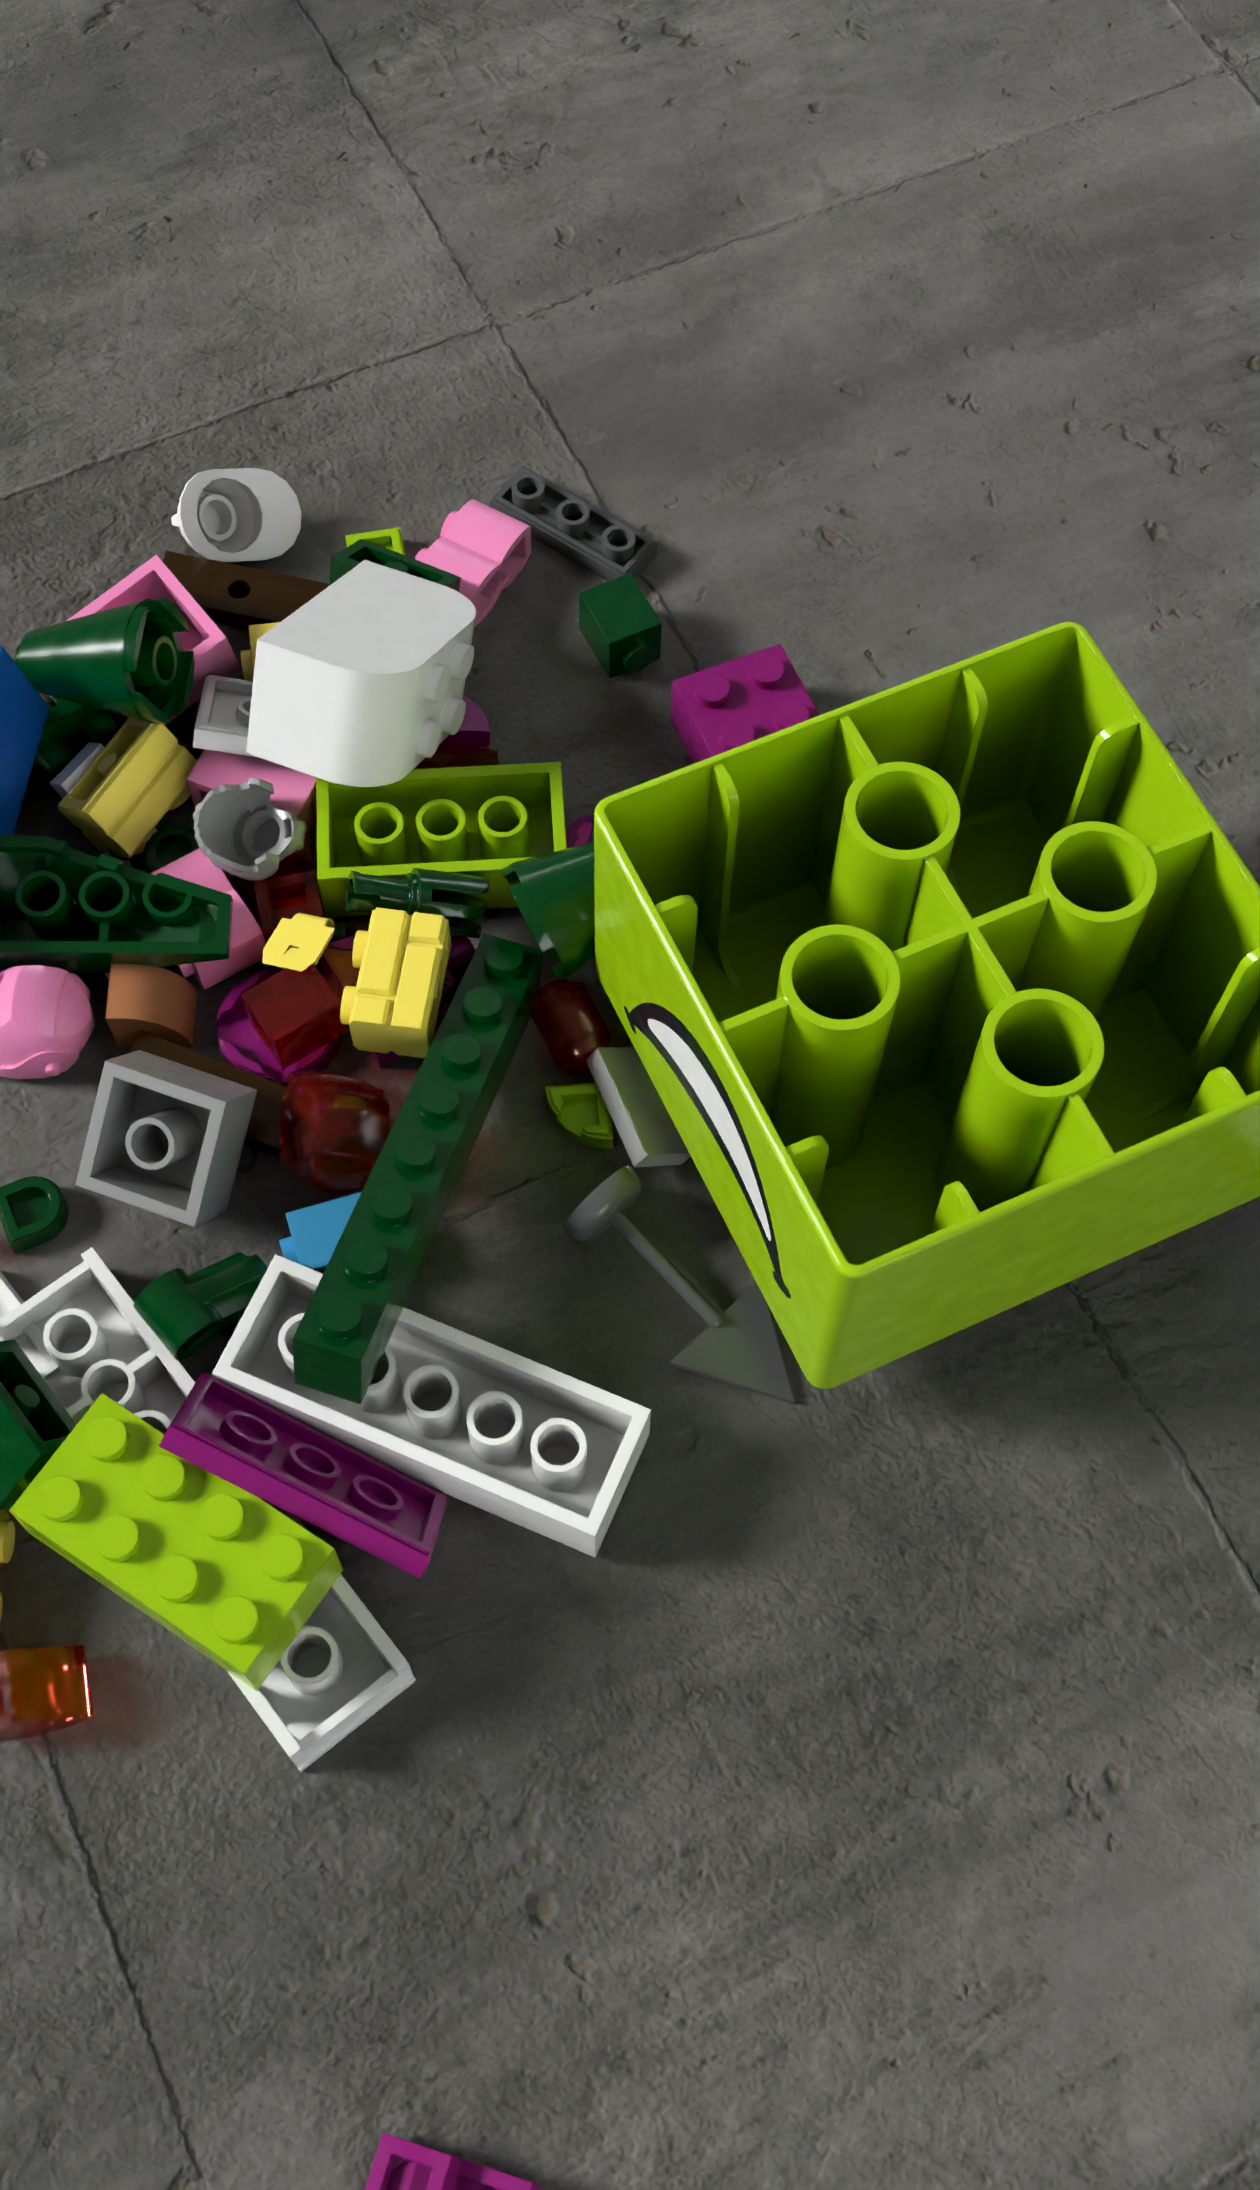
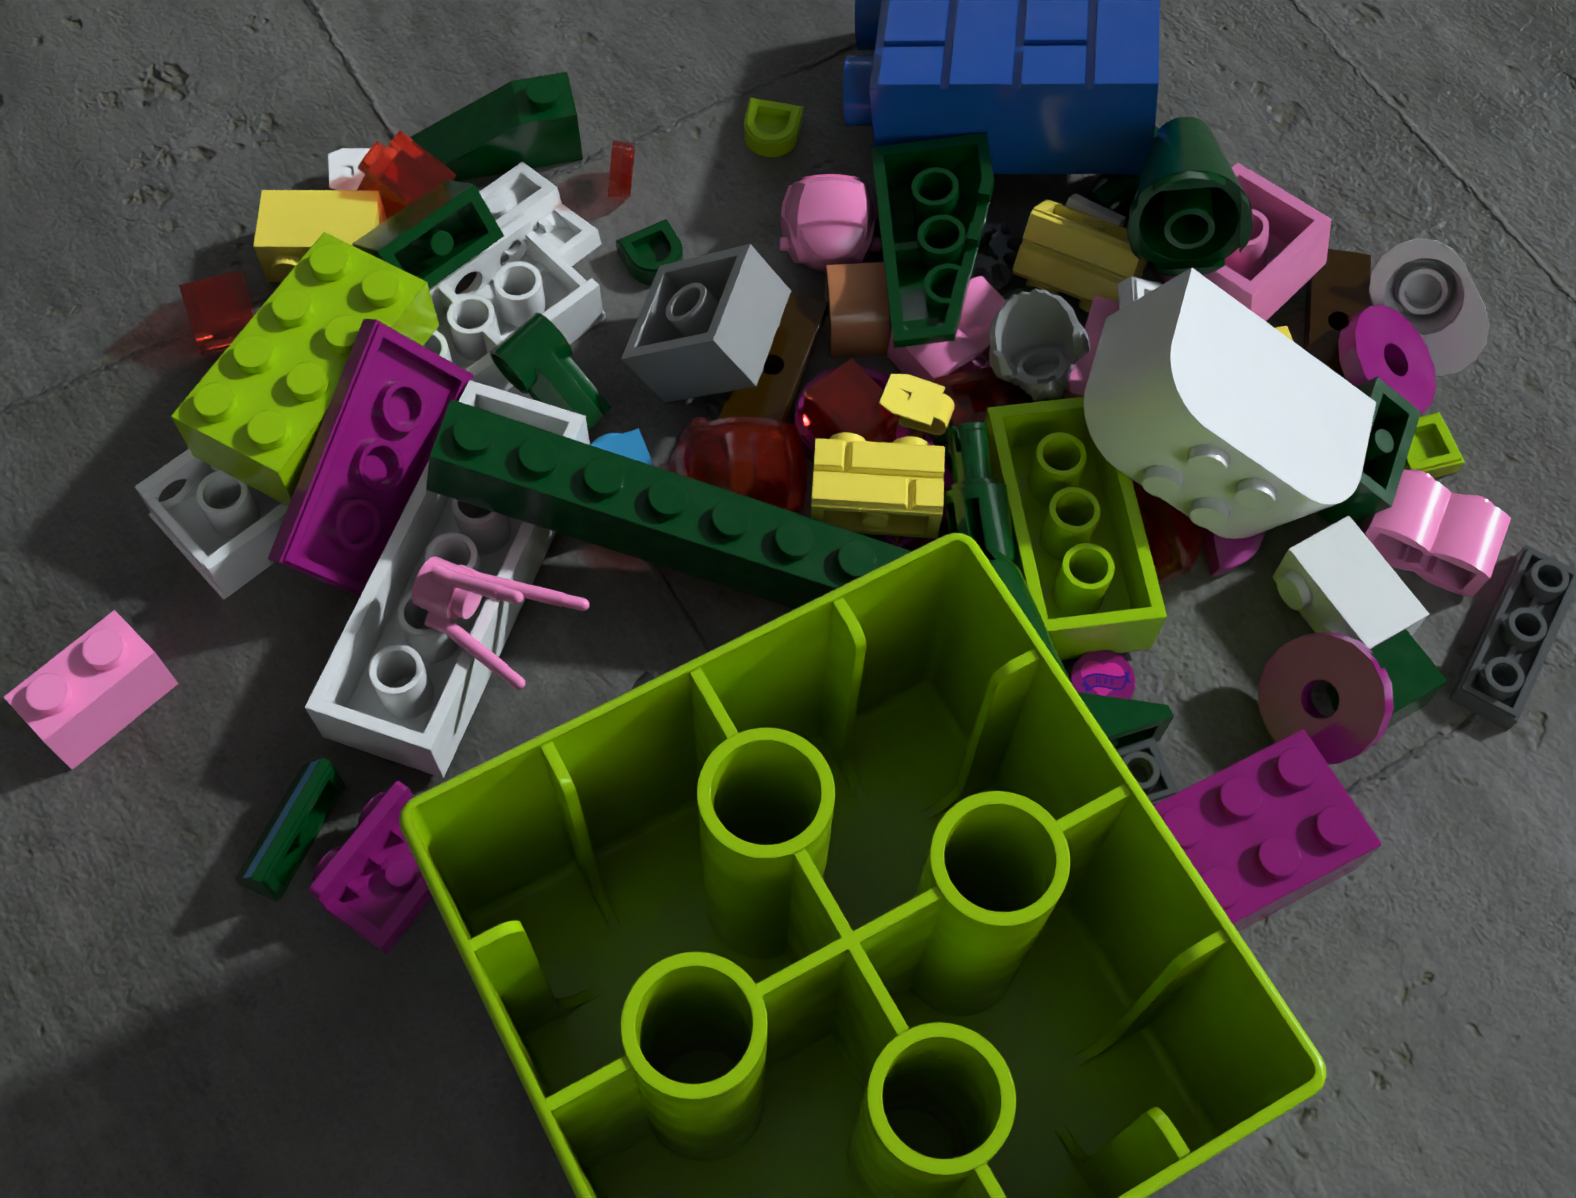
camera: 85 degrees right, 0 degrees up
(289, 559) = (1388, 347): none -> magenta tile
(485, 1375) = (456, 592): none -> bright pink plant
(532, 636) = (1347, 587): none -> white brick
(533, 1796) = (92, 689): none -> bright pink brick
(603, 661) = (1357, 676): none -> tile
(696, 1584) = (292, 829): none -> dark green slope
(750, 1475) = (374, 877): none -> magenta bracket

